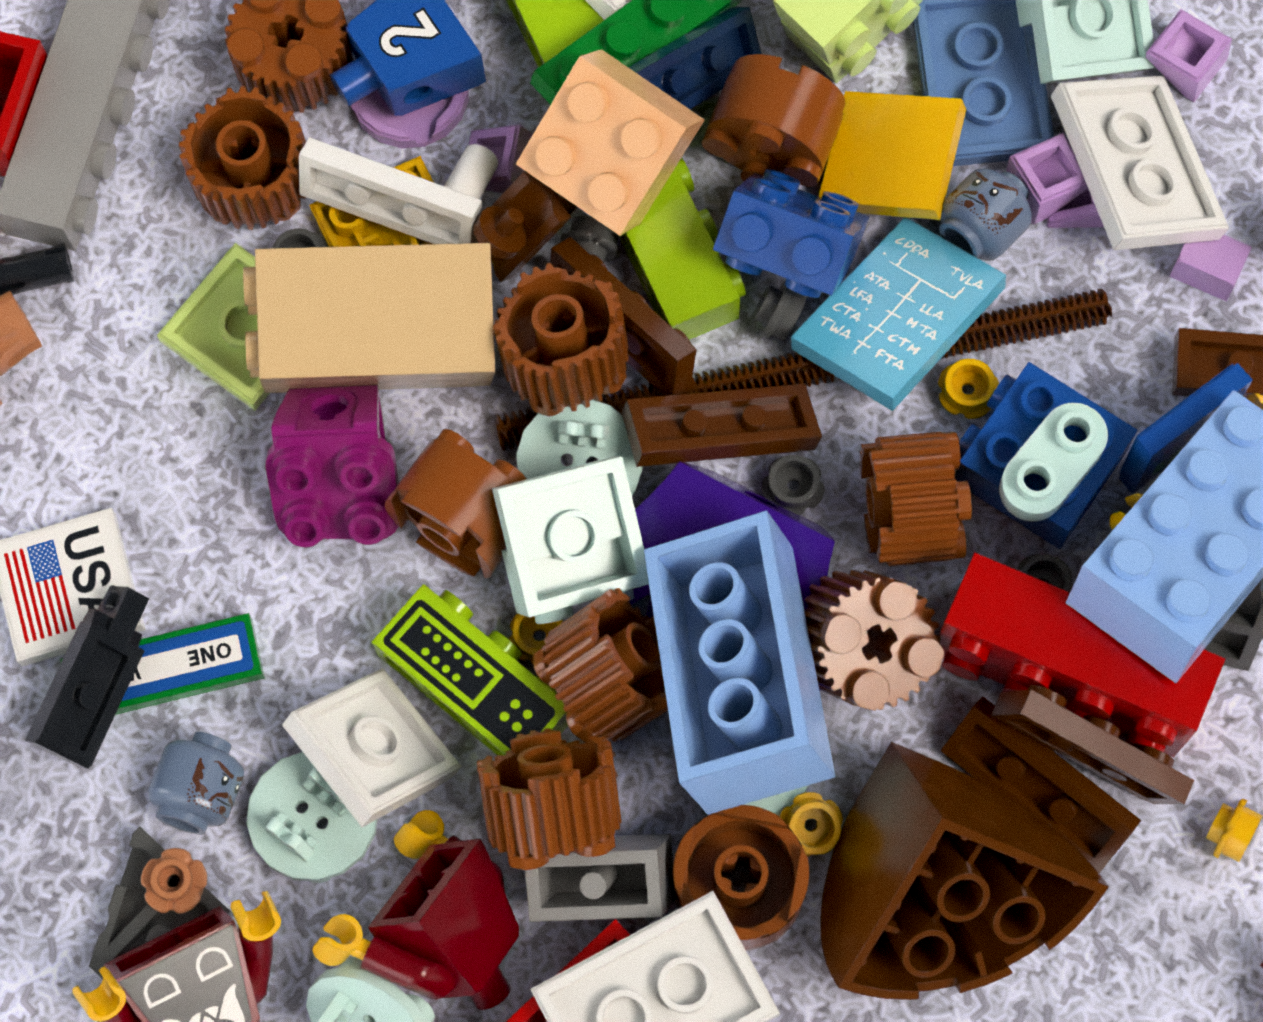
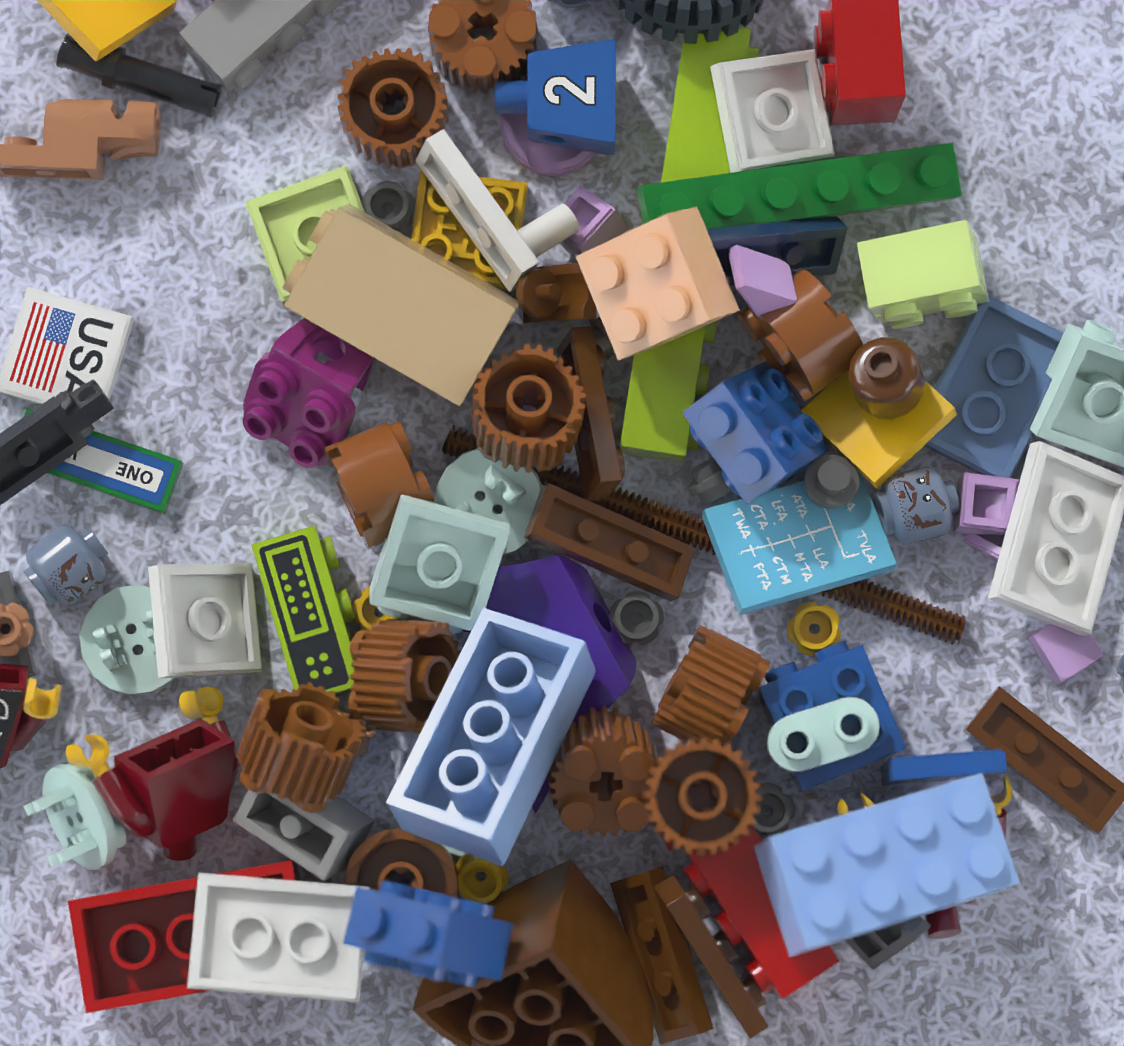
camera: 30 degrees right, 10 degrees up
(706, 86) = (762, 280): none -> lavender slope
(808, 884) = (428, 933): none -> blue brick
(881, 106) = (886, 378): none -> reddish brown head
(892, 240) = (831, 481): none -> dark grey plate
(1011, 551) = (732, 787): none -> dark orange brick

